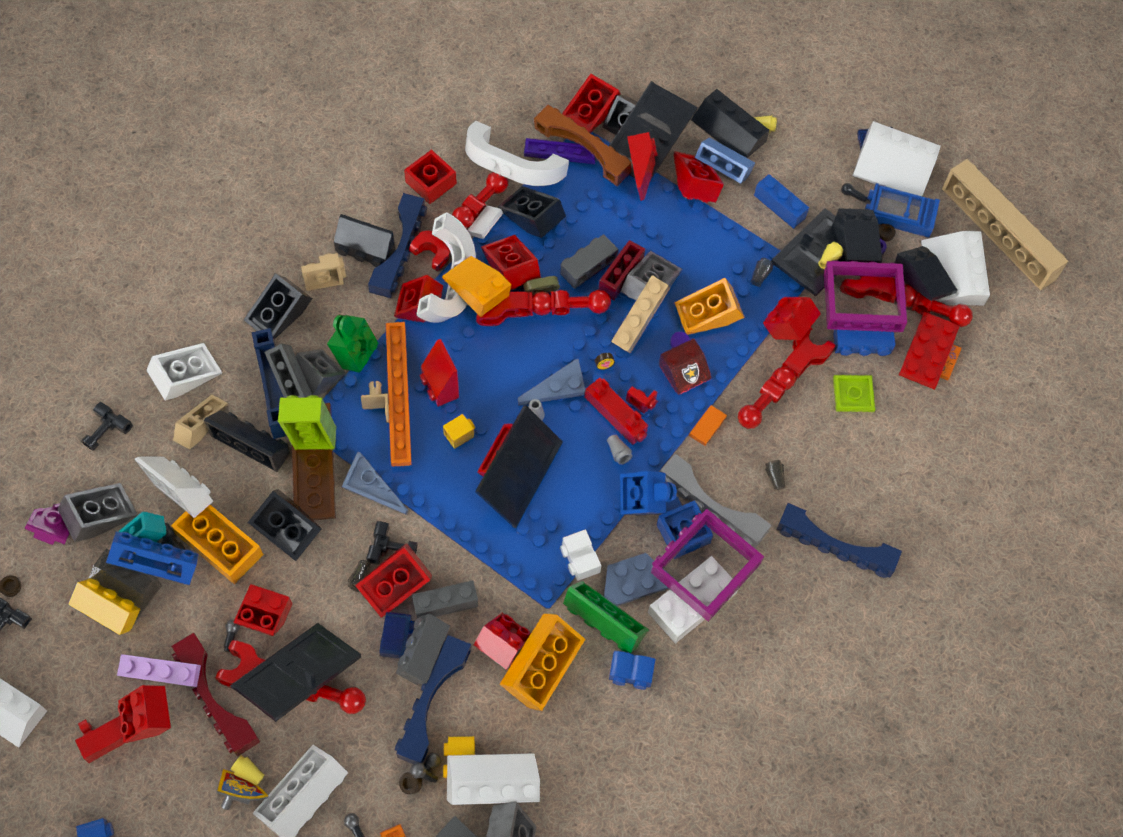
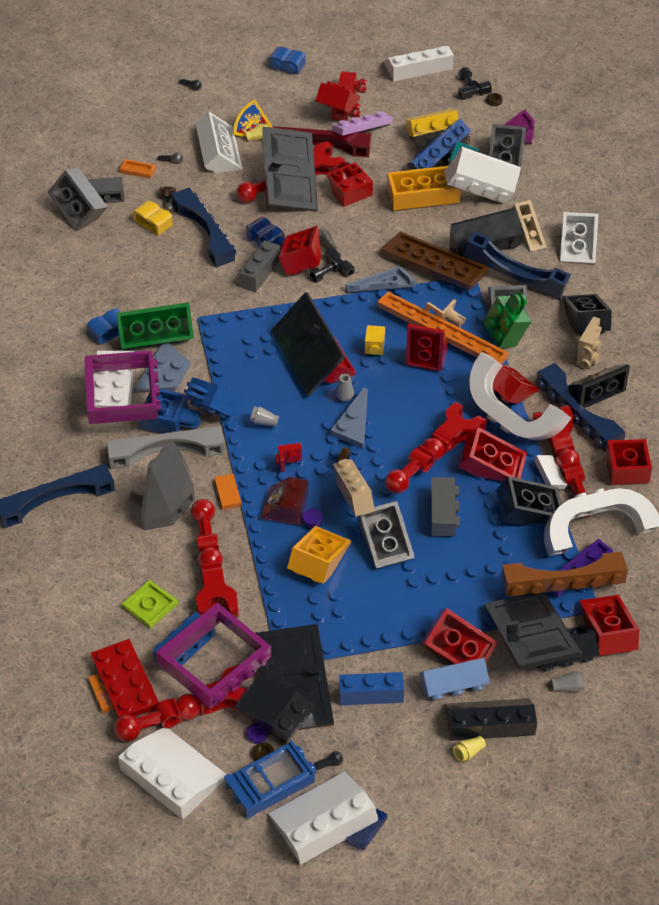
camera: 135 degrees right, 15 degrees down
(109, 421) = (572, 186): black bar -> none
(285, 524) = (404, 219): black slope -> none
(288, 371) = (511, 271): dark grey brick -> none
(307, 422) = (450, 237): lime brick -> none
(419, 771) = (167, 191): flat silver piece -> none
(422, 649) = (239, 232): dark grey brick -> none
(478, 284) = (482, 405): light orange slope -> none
(492, 779) = (120, 213): white slope -> none
(502, 639) = (201, 280): red slope -> none
(542, 661) = (162, 276): light orange brick -> none
(543, 284) = (450, 462): olive beam -> none
(581, 555) = (209, 345): white brick -> none
(616, 411) = (308, 433): red brick -> none
(617, 273) = (413, 515): dark red brick -> none
(642, 154) = (500, 590): red slope -> none
(761, 271) = (317, 615): clear smoke cone -> none
(766, 439) = (167, 489): none -> dark grey wedge
(791, 318) = (251, 595): red brick -> none
(832, 252) = (278, 669): light yellow cone -> none
(925, 273) = (187, 724): black slope -> none
(1004, 224) = (169, 838): tan brick -> none

